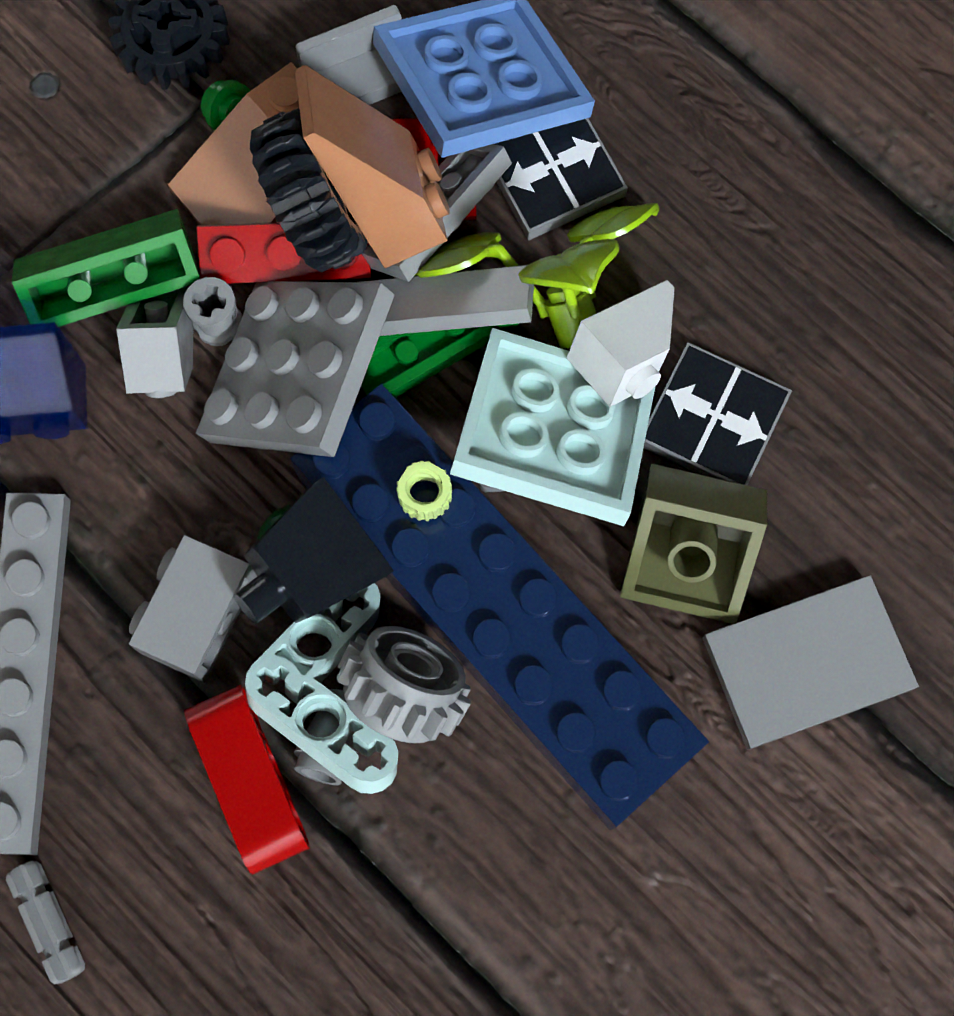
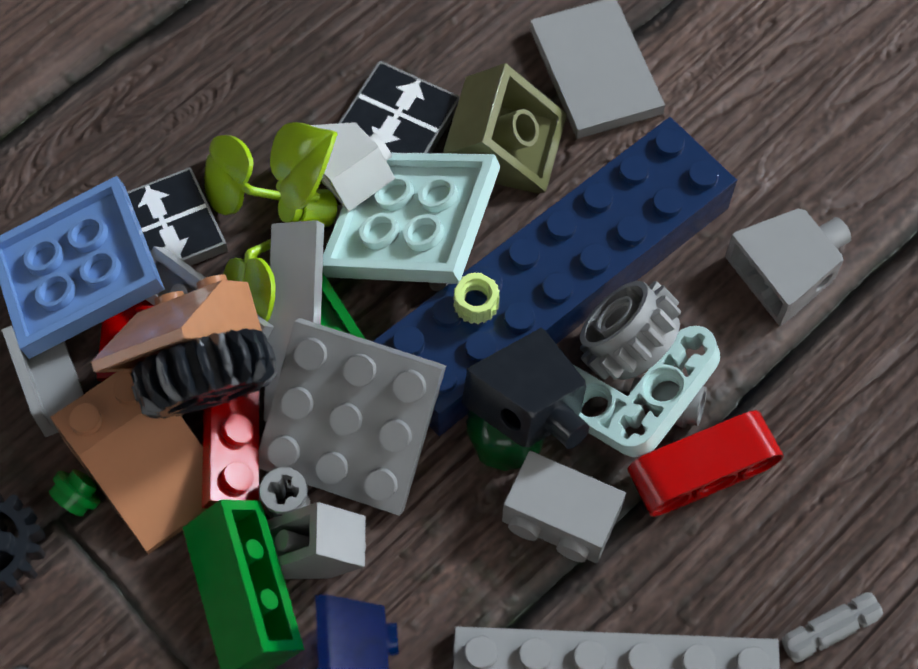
camera: 90 degrees left, 10 degrees down
(523, 902) = (788, 260): none -> light grey torso

